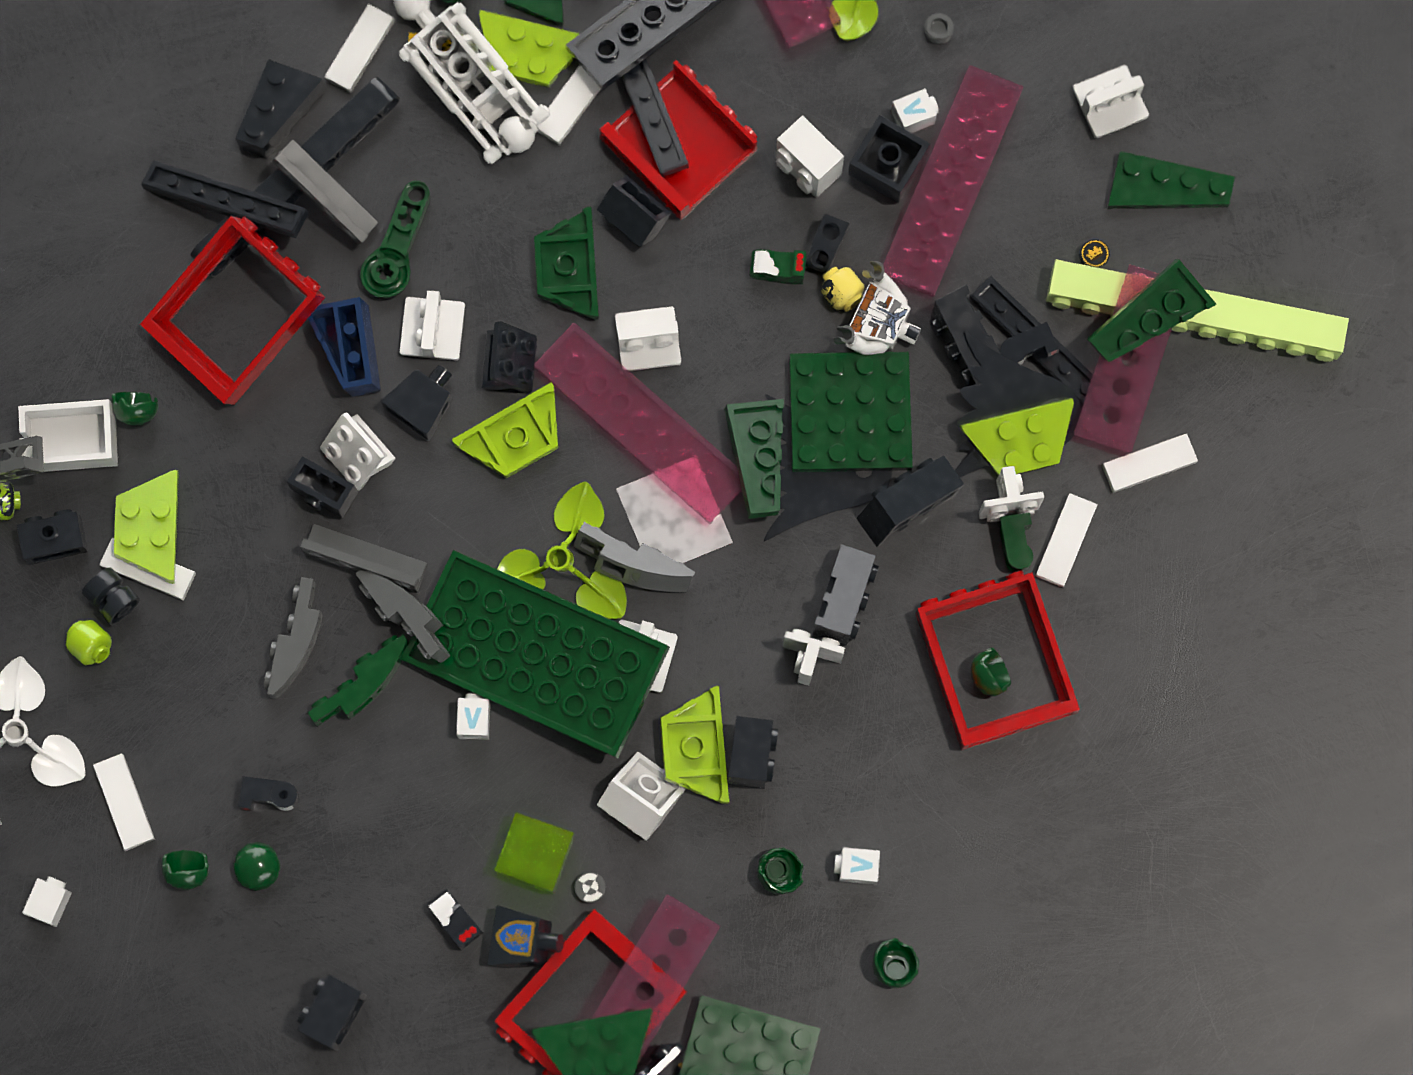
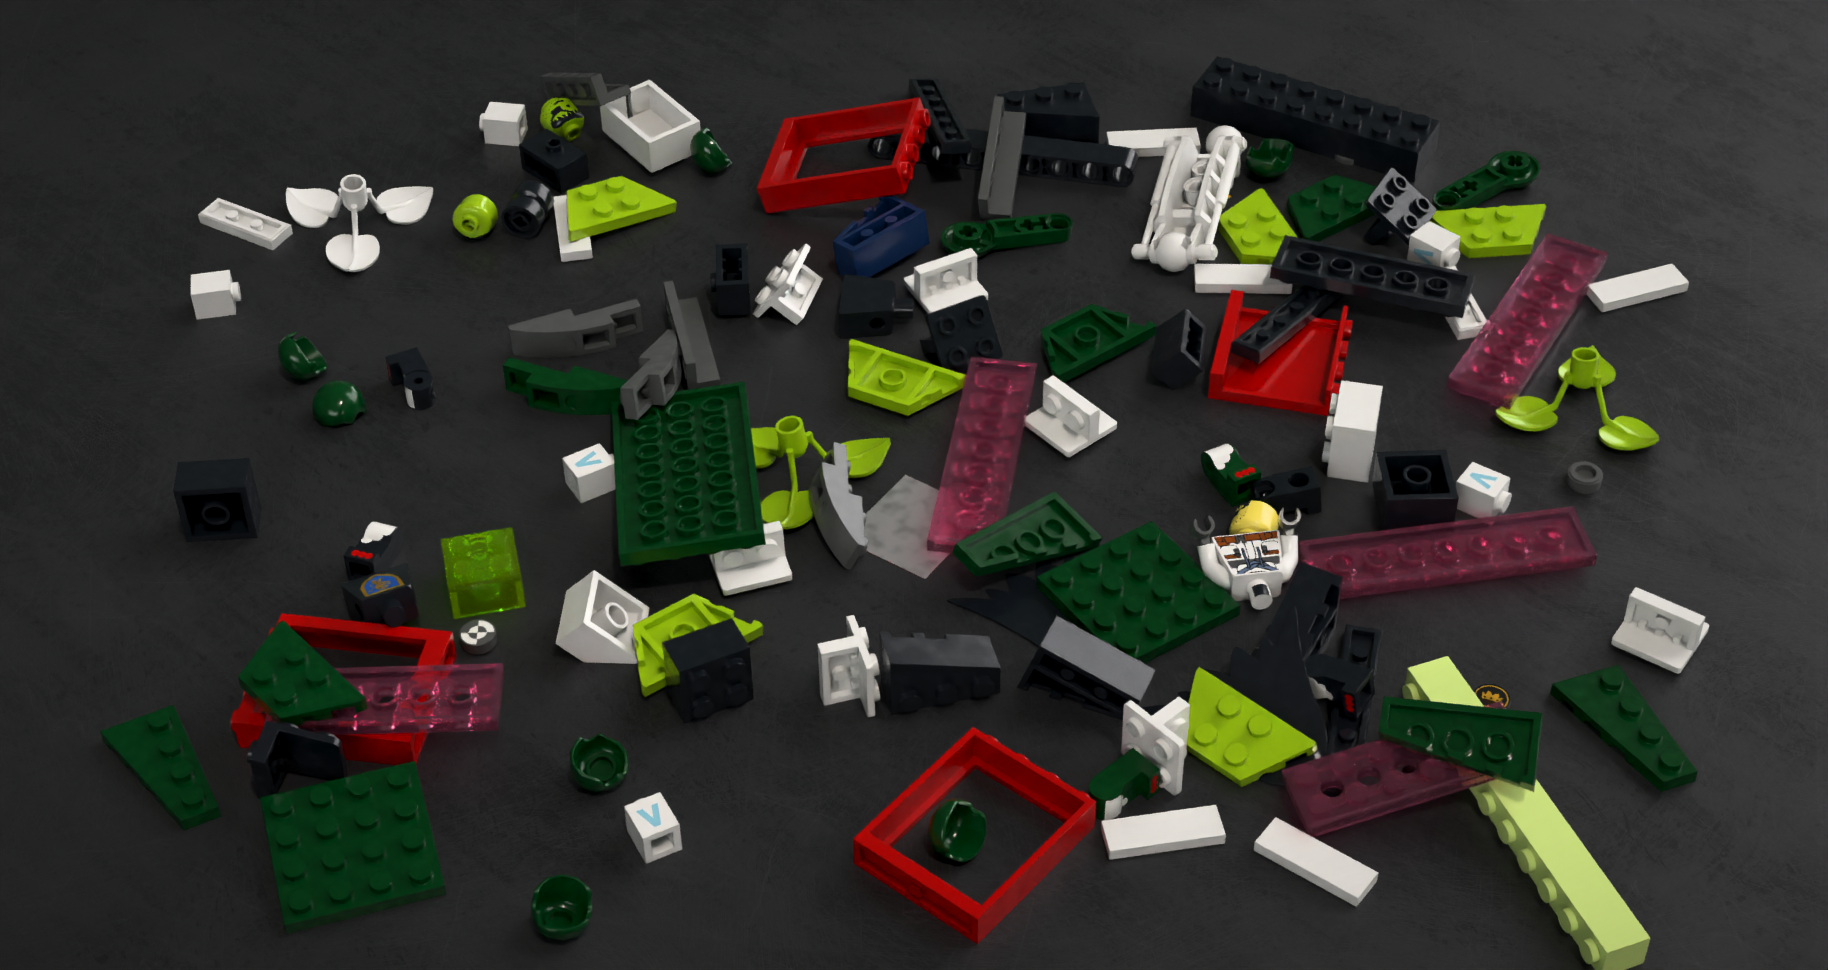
camera: 60 degrees right, 35 degrees down
(124, 802) = (342, 304): white tile -> none

